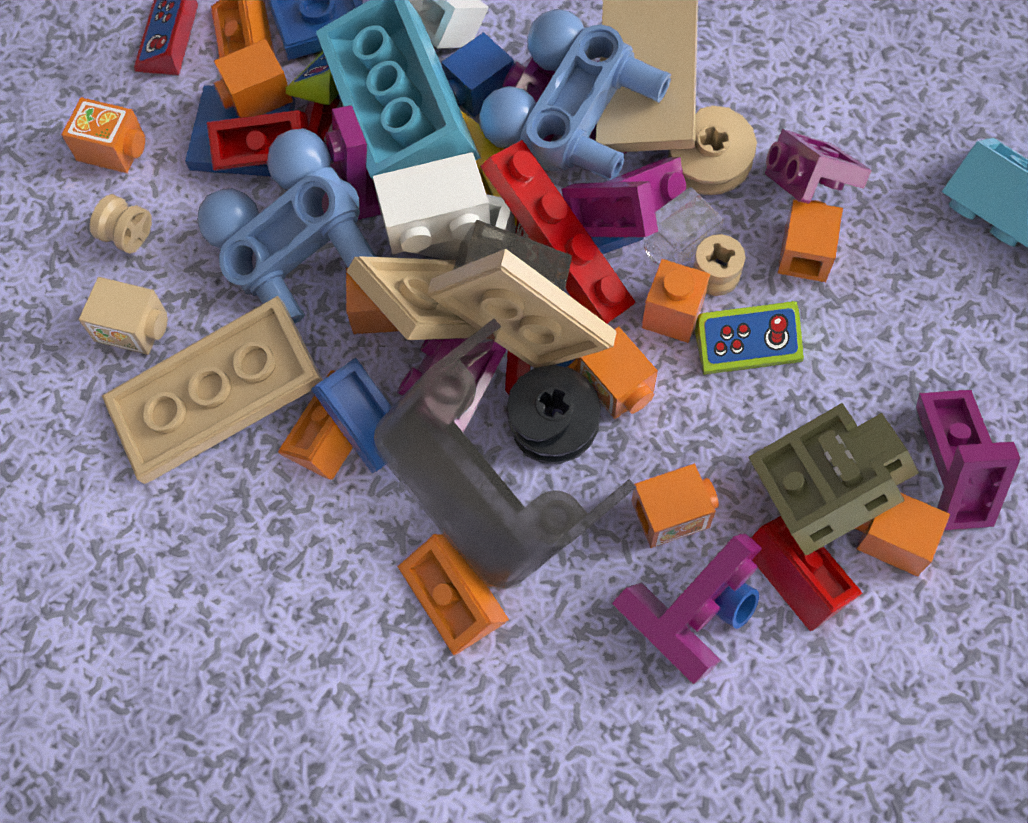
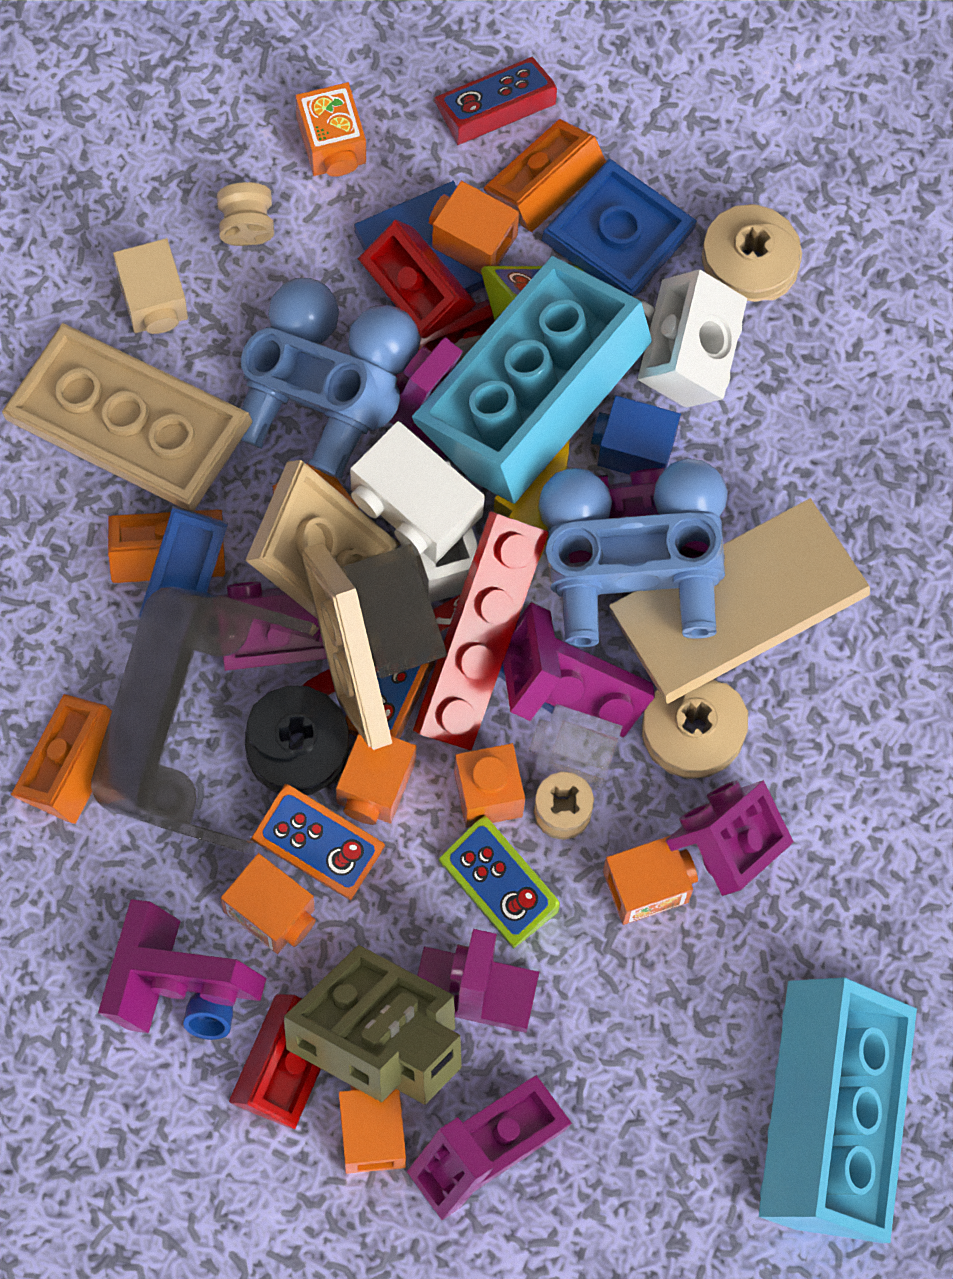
camera: 50 degrees right, 5 degrees up
(642, 442) = (318, 841): none -> slope
(833, 377) = (482, 988): none -> magenta bracket

